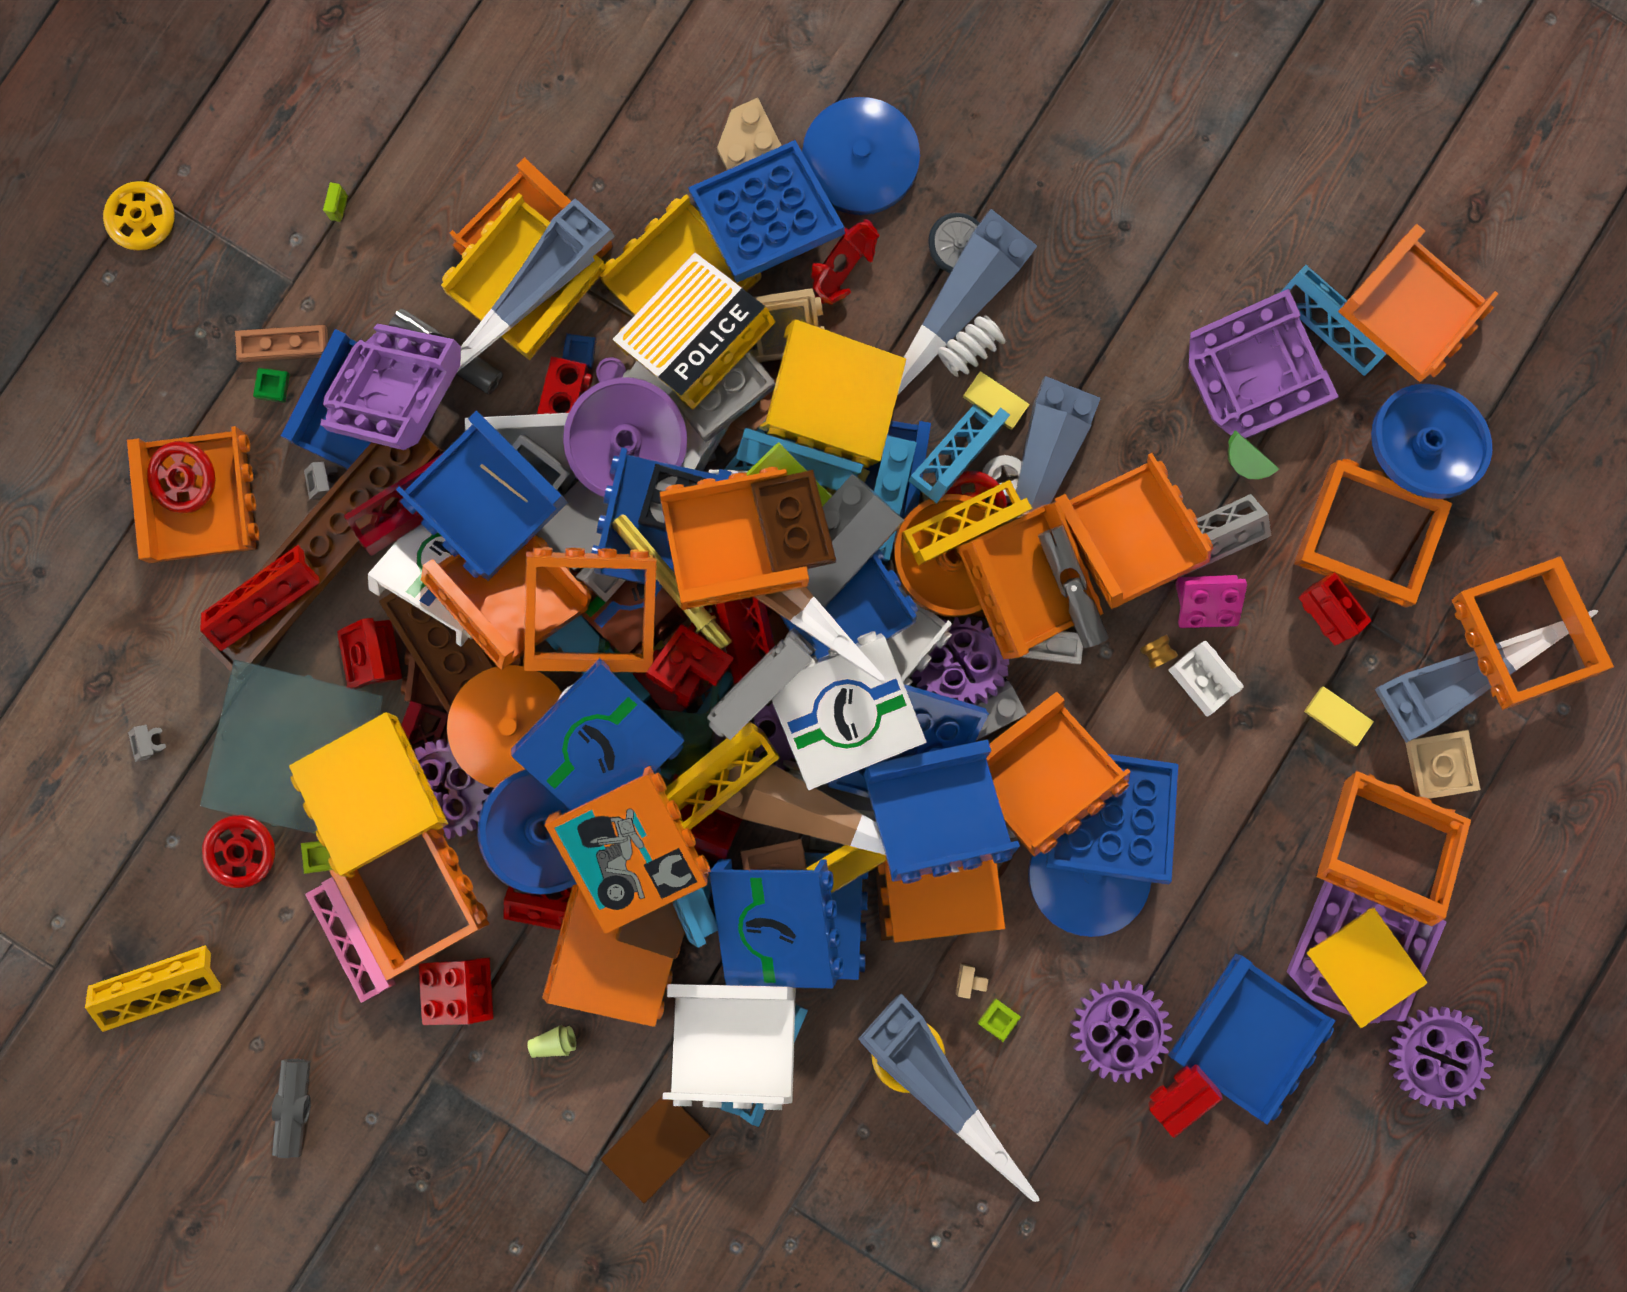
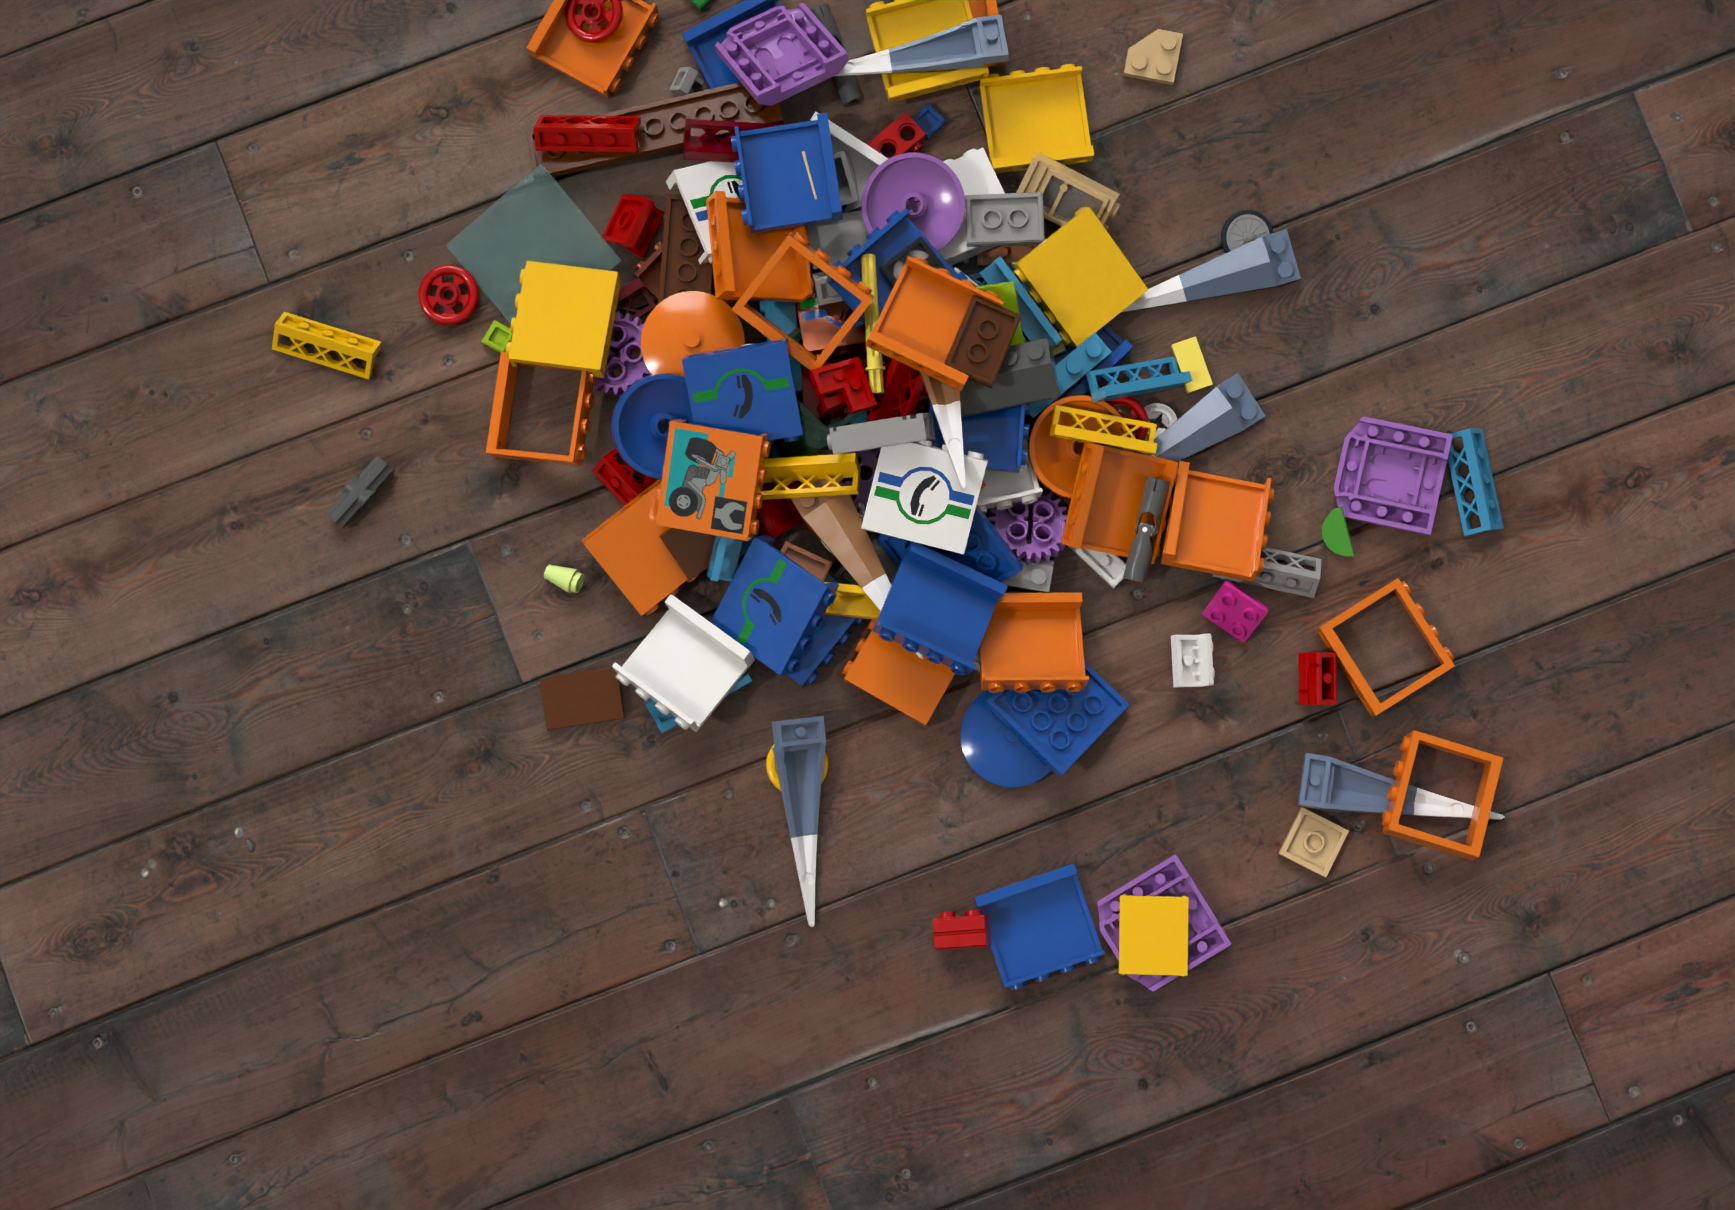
camera: 40 degrees right, 0 degrees up
(141, 742) = (436, 174): light grey tile -> none
(353, 937) = (486, 405): bright pink fence -> none
(456, 992) = (525, 495): red bracket -> none
(609, 369) = (940, 149): medium lavender piece -> none
(695, 329) = (1016, 164): panel -> none
(766, 211) = (1128, 117): blue plate -> none
(854, 244) = (1172, 185): red piece -> none
(862, 154) = (1225, 126): blue dish -> none
(968, 981) = (874, 744): tan tile -> none
(971, 344) = (1202, 314): white piece -> none
(999, 1020) = (876, 786): lime tile -> none
(1143, 1048) = (947, 830): medium lavender gear -> none
(1159, 652) = (1173, 619): pearl gold wheel -> none
(1338, 716) = (1266, 755): light yellow tile -> none
(1377, 889) = (1202, 889): orange window -> none
(1416, 308) = (1534, 512): orange panel -> none
(1431, 441) = (1474, 613): blue dish -> none
(1431, 1083) = (1179, 1022): medium lavender gear -> none

